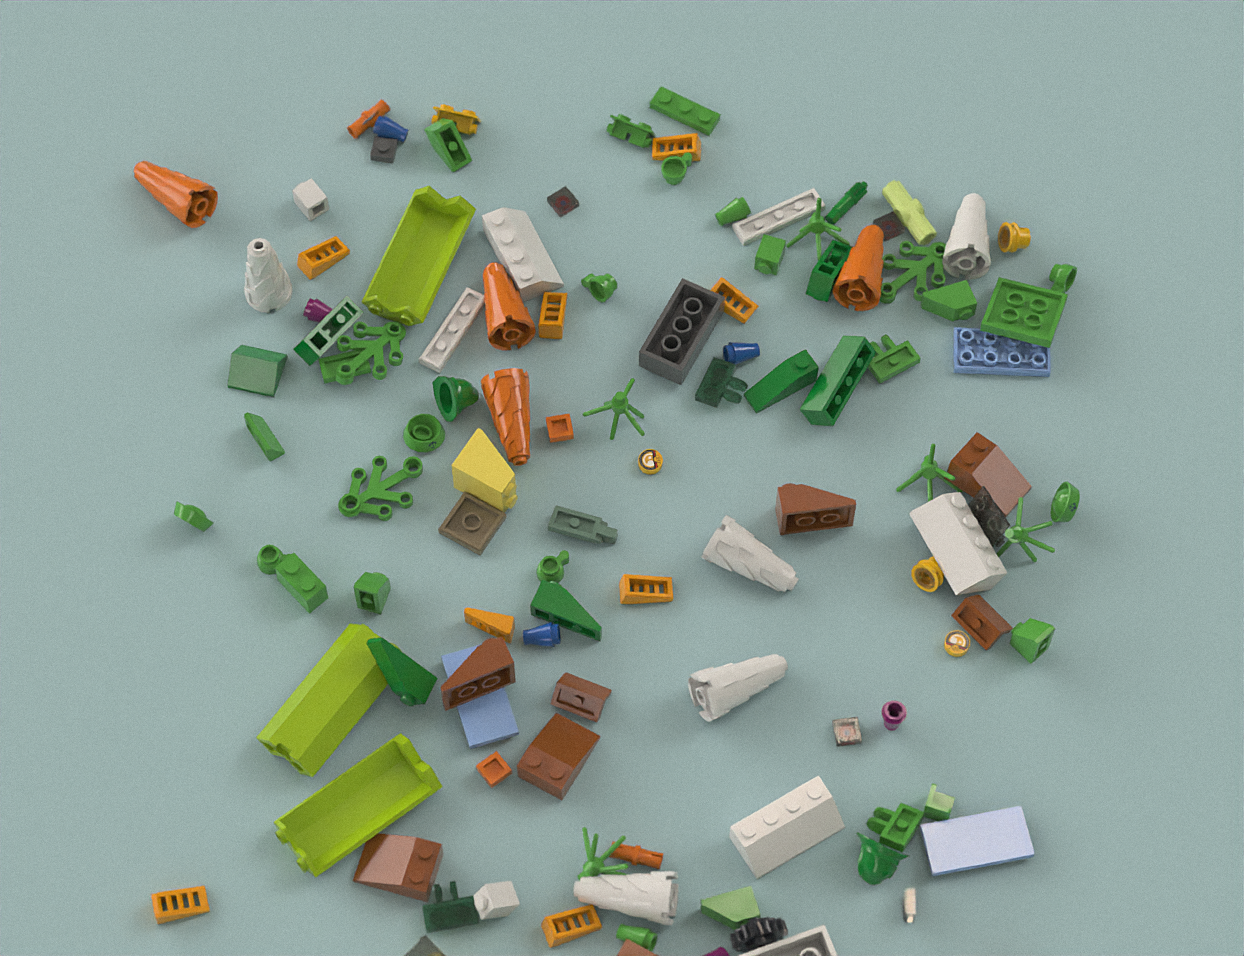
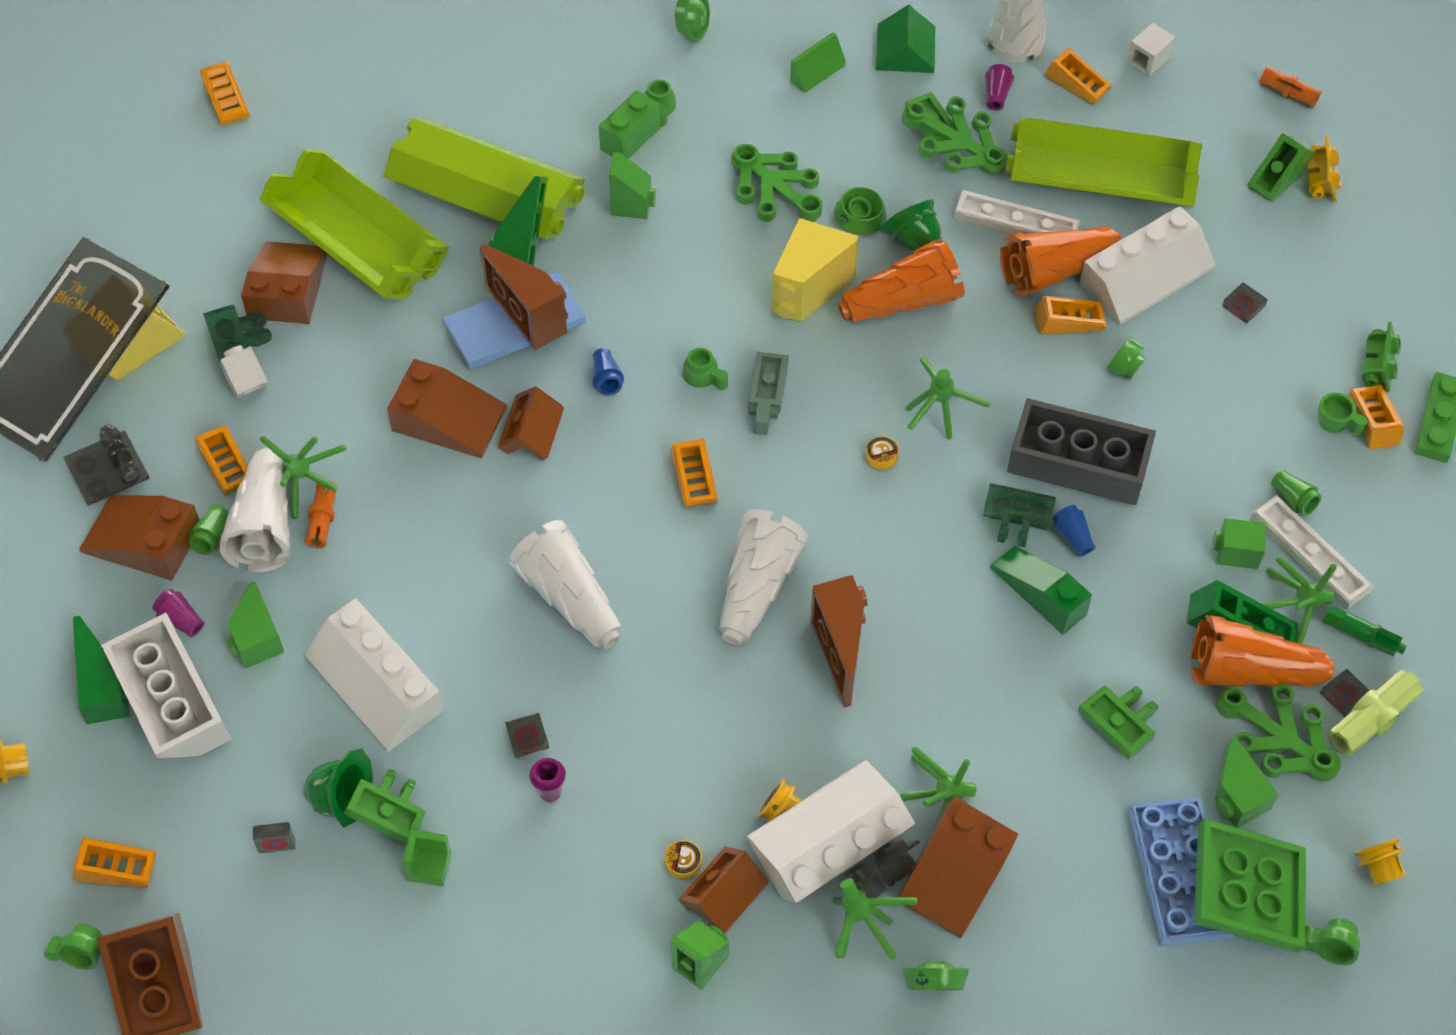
camera: 80 degrees right, 5 degrees down
(328, 330) = (977, 92): green slope -> none
(384, 149) = (1252, 110): dark grey plate -> none
(388, 128) = (1281, 107): blue cone -> none
(472, 523) = (745, 281): dark tan tile -> none
(491, 623) = (609, 321): light orange slope -> none
(494, 769) = (418, 346): orange plate -> none
(558, 606) = (645, 385): green slope -> none
(559, 428) = (903, 345): orange plate -> none
(729, 290) = (1163, 488): light orange slope -> none
(758, 933) = (210, 652): black gear -> none
(837, 380) = (1060, 648): green brick -> none
(968, 241) = (1353, 794): white cone -> none
(976, 841) = (378, 917): light blue tile -> none

